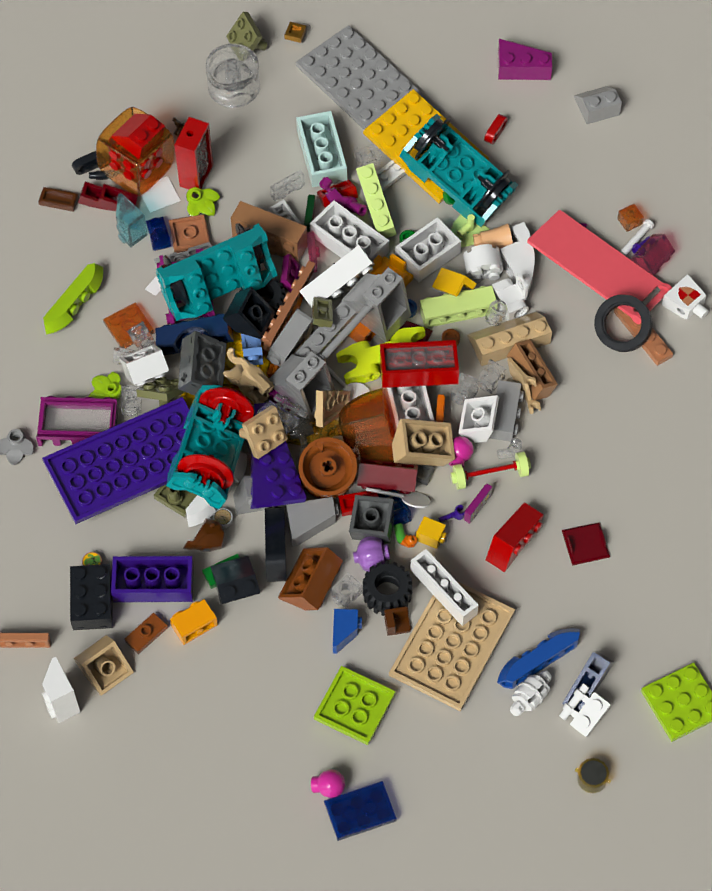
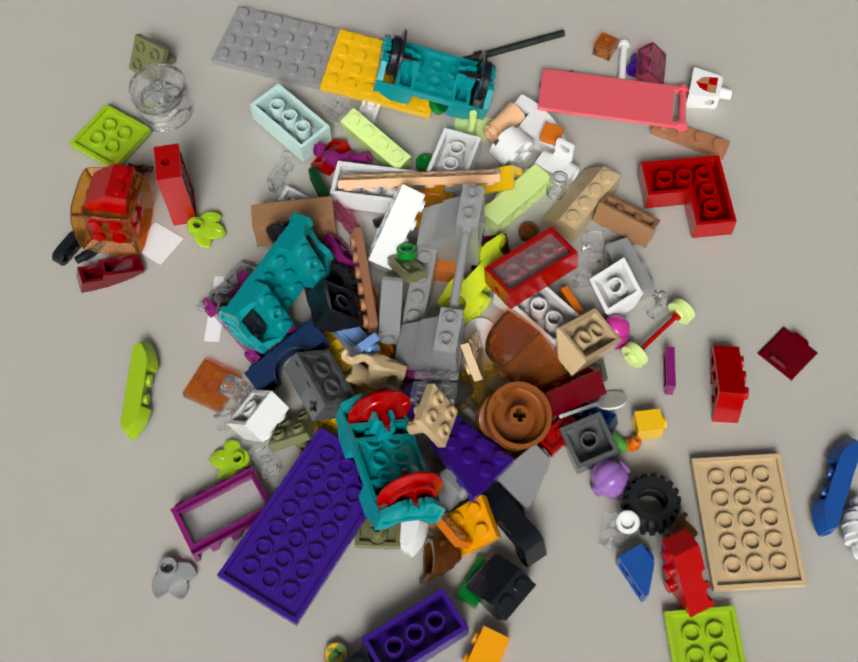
camera: 30 degrees left, 0 degrees up
(58, 199) = (58, 299): reddish brown tile -> none
(130, 222) = (150, 282): clear light blue slope -> none
(158, 233) = (184, 279): clear blue plate -> none
(175, 88) = (110, 137): none -> lime plate
(188, 232) = (212, 264): nougat tile -> none
(227, 523) = (453, 532): none -> orange tile
(246, 529) = (477, 523): none -> light orange plate
(295, 32) = (193, 34): pearl gold plate -> none
(311, 578) = (569, 538): dark orange slope -> none
(331, 300) = (407, 251): none -> green tile
(357, 588) = (628, 522): none -> white tile
(371, 643) = (683, 572): none -> red wedge
(385, 248) = (411, 179): none -> light nougat plate
(444, 587) = (709, 471): white brick -> none
(459, 516) = (654, 393): dark purple hand -> none
(495, 129) = (434, 29): red beam -> none
(518, 171) = (517, 45): none -> pearl dark grey bar
(520, 377) = (617, 231): tan flag -> none
(522, 266) = (551, 133): none -> orange tile
(600, 323) = (689, 117): black tyre -> none
(608, 369) = (697, 185): none -> red brick

